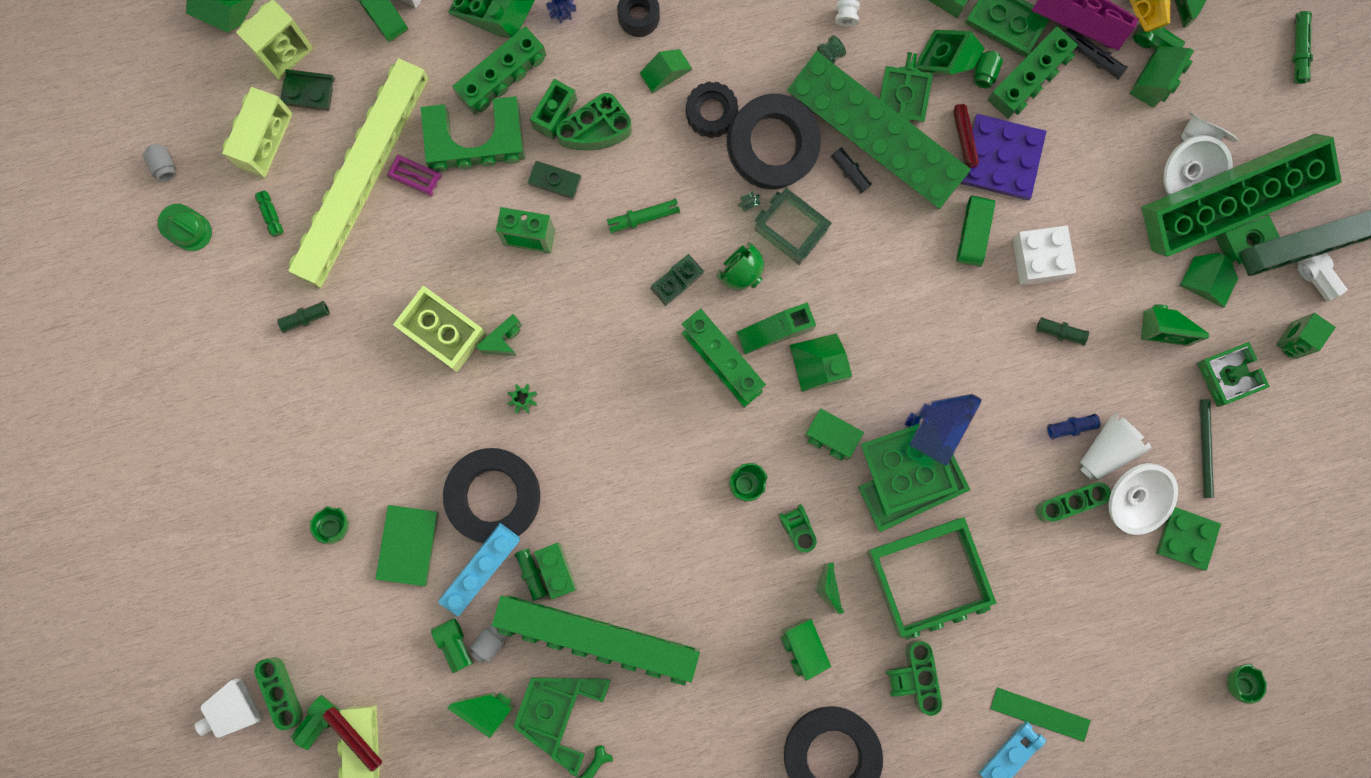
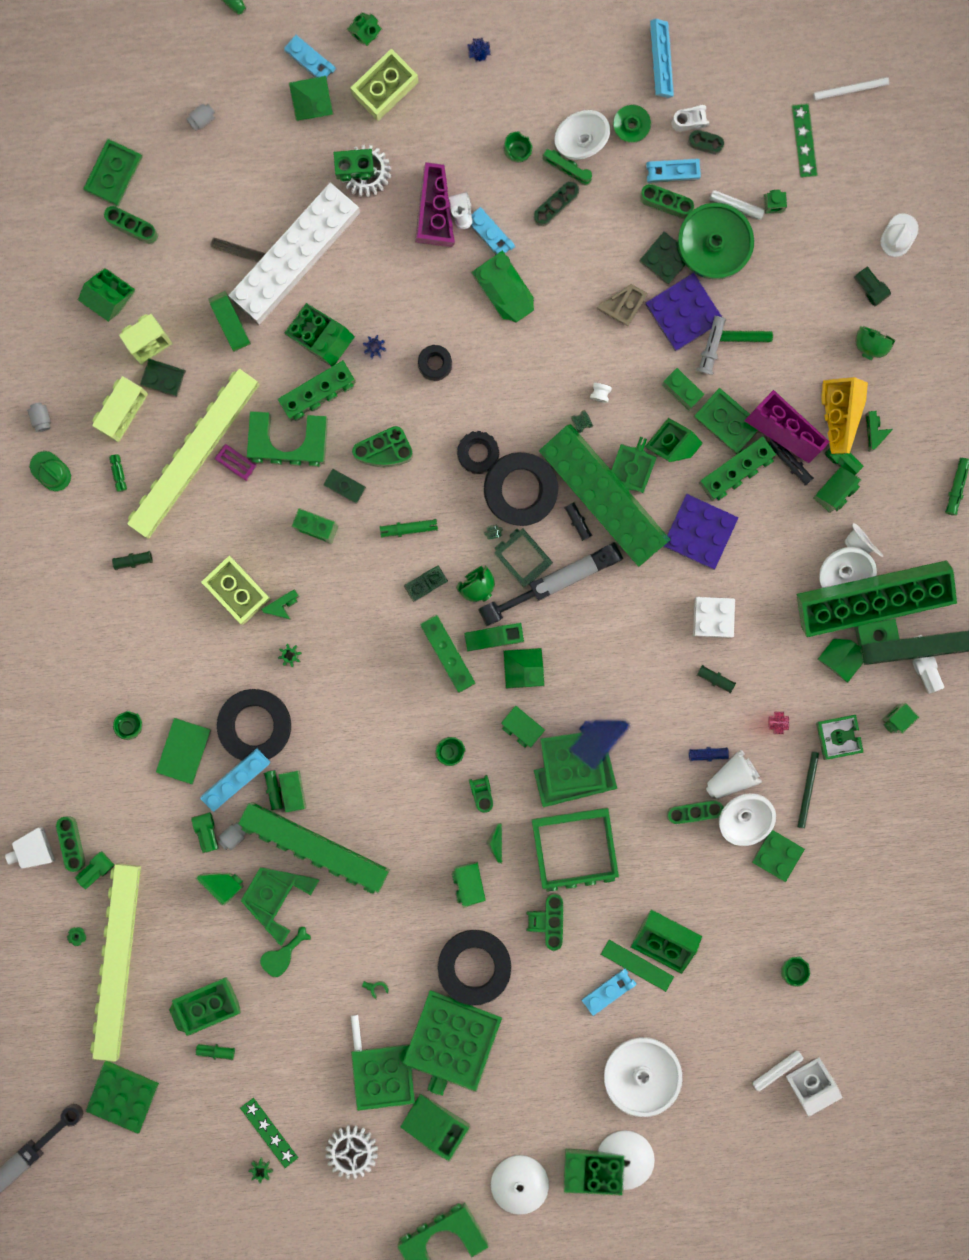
camera: 15 degrees right, 5 degrees up
(352, 739) = (121, 887): dark red axle -> none
(553, 108) = (353, 431): green brick -> none
(665, 69) = (448, 412): green slope -> none
(826, 256) = (556, 581): none -> piece
(966, 135) = (673, 510): dark red axle -> none
(975, 231) = (665, 588): green beam -> none
(987, 69) = (702, 459): green brick -> none
(1074, 676) = (666, 941): none -> green slope
(1153, 370) = (778, 722): none -> clear pink gear
(1170, 327) = (798, 690): green slope -> none

